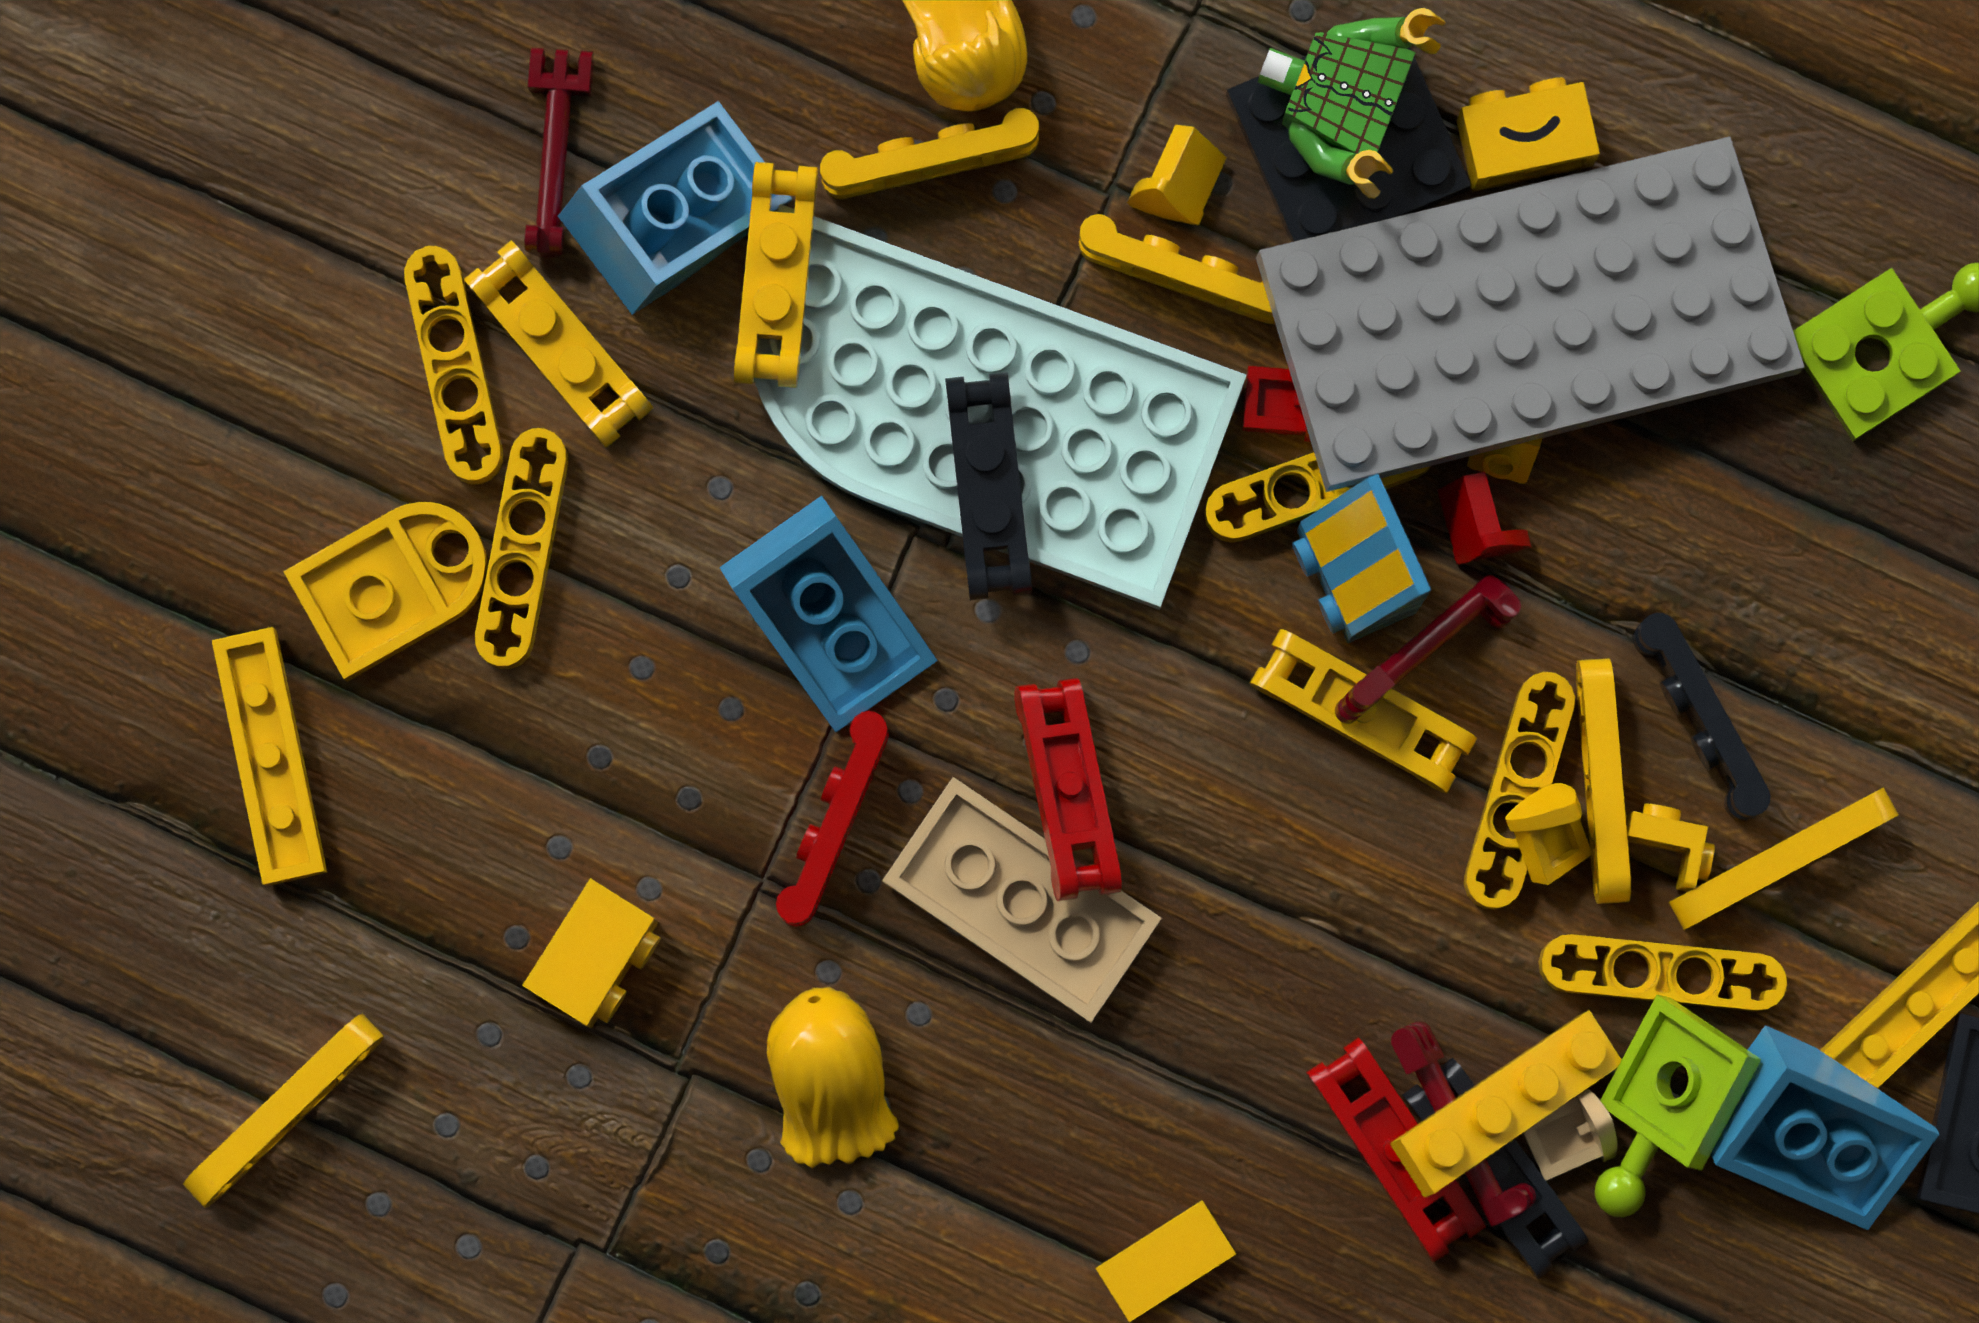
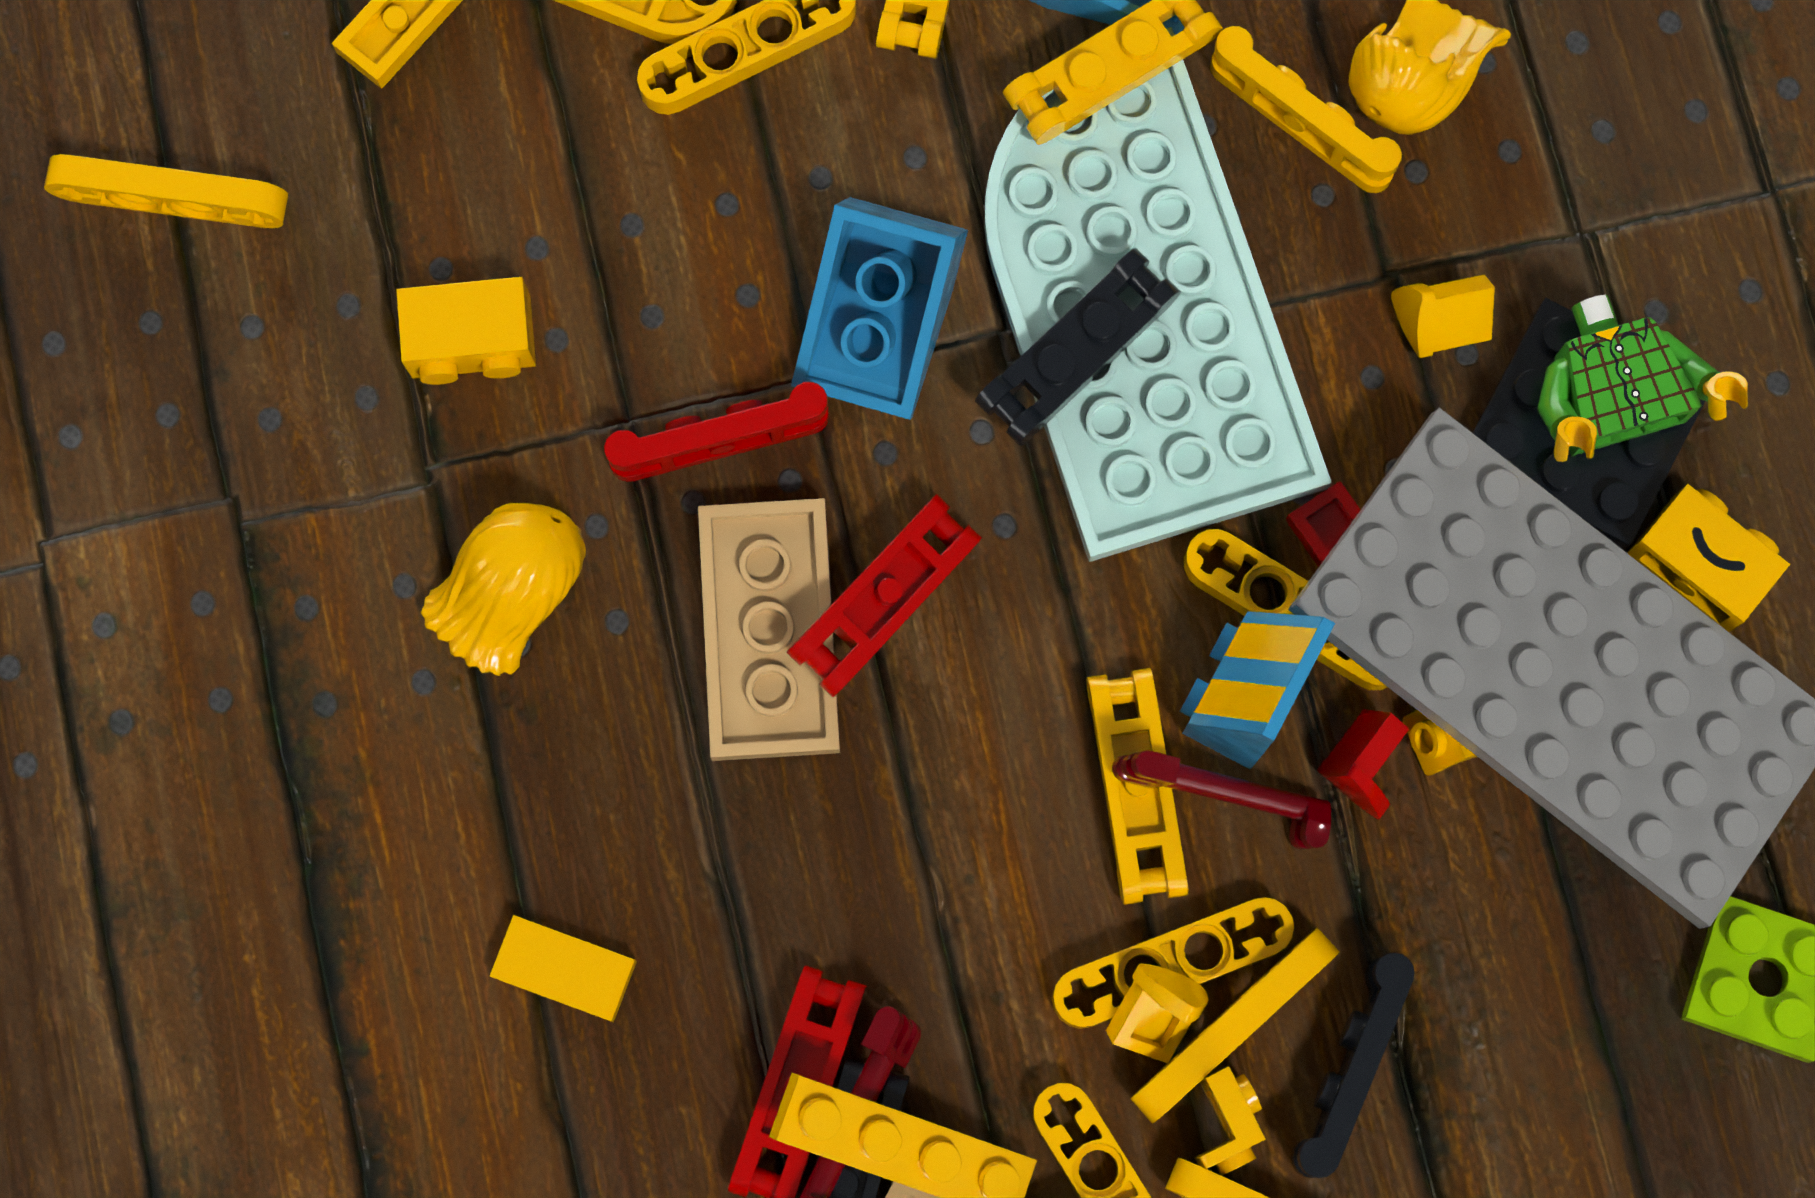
camera: 50 degrees right, 5 degrees down
(1159, 263) = (1364, 351): yellow plate -> none

